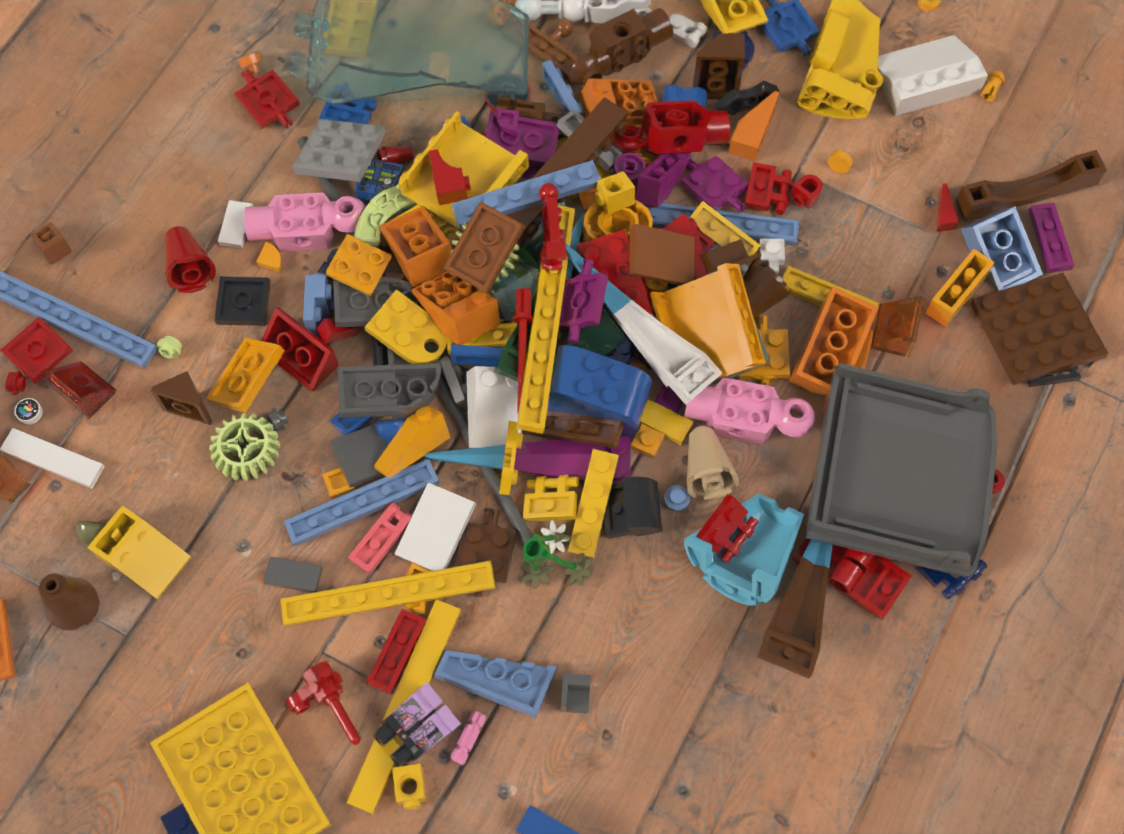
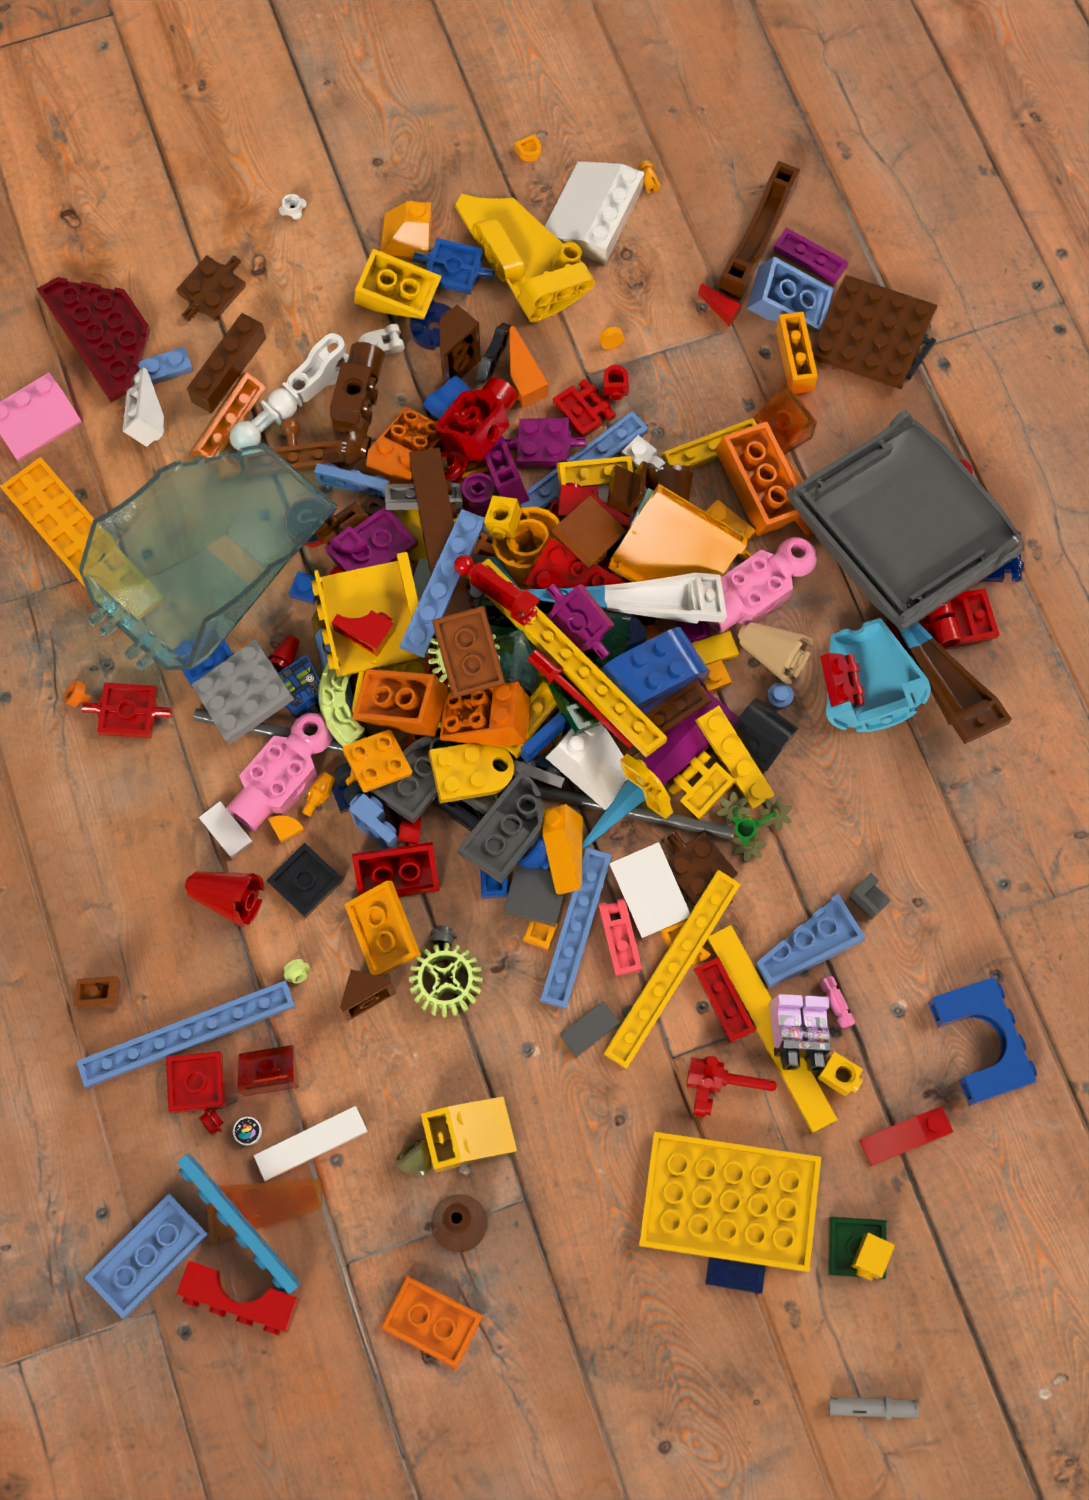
camera: 50 degrees left, 5 degrees up
(311, 257) = (318, 793): none -> light orange piece

